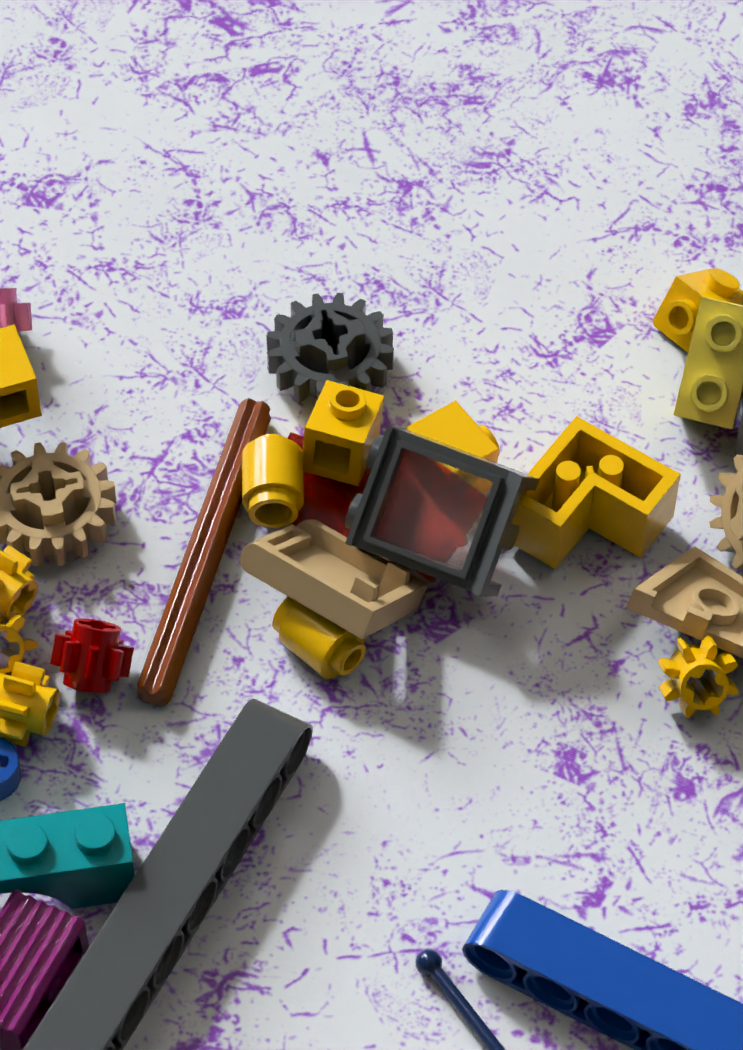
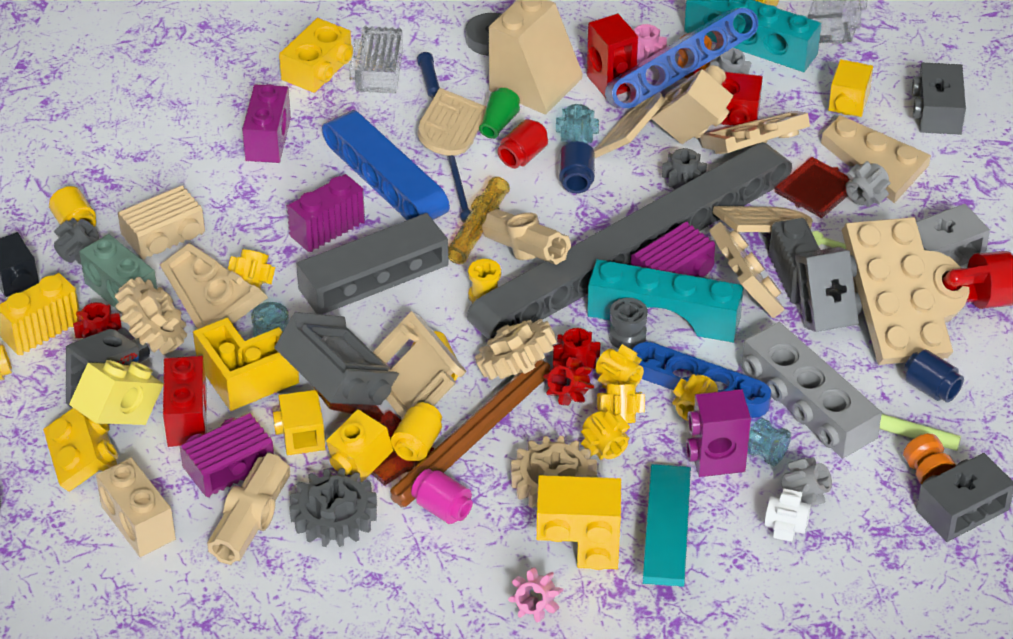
camera: 155 degrees left, 10 degrees down
(37, 785) = (628, 322): none -> dark grey wheel
(106, 723) = (577, 344): none -> red gear
(173, 645) = (515, 349): none -> tan gear
(189, 416) = (442, 496): none -> dark pink brick
(246, 862) = (526, 236): none -> tan piece
(316, 782) = (484, 277): none -> yellow bush
(400, 971) = (472, 227): none -> clear yellow pin
(441, 316) = (248, 509): none -> tan piece
(517, 774) = (372, 264): none -> dark grey brick
(523, 374) = (225, 453): none -> magenta brick
(585, 255) = (135, 507): none -> tan brick
(612, 589) = (268, 317): none -> clear light blue wheel
(632, 407) = (184, 399): none -> red brick
(656, 840) = (326, 212): none -> magenta brick

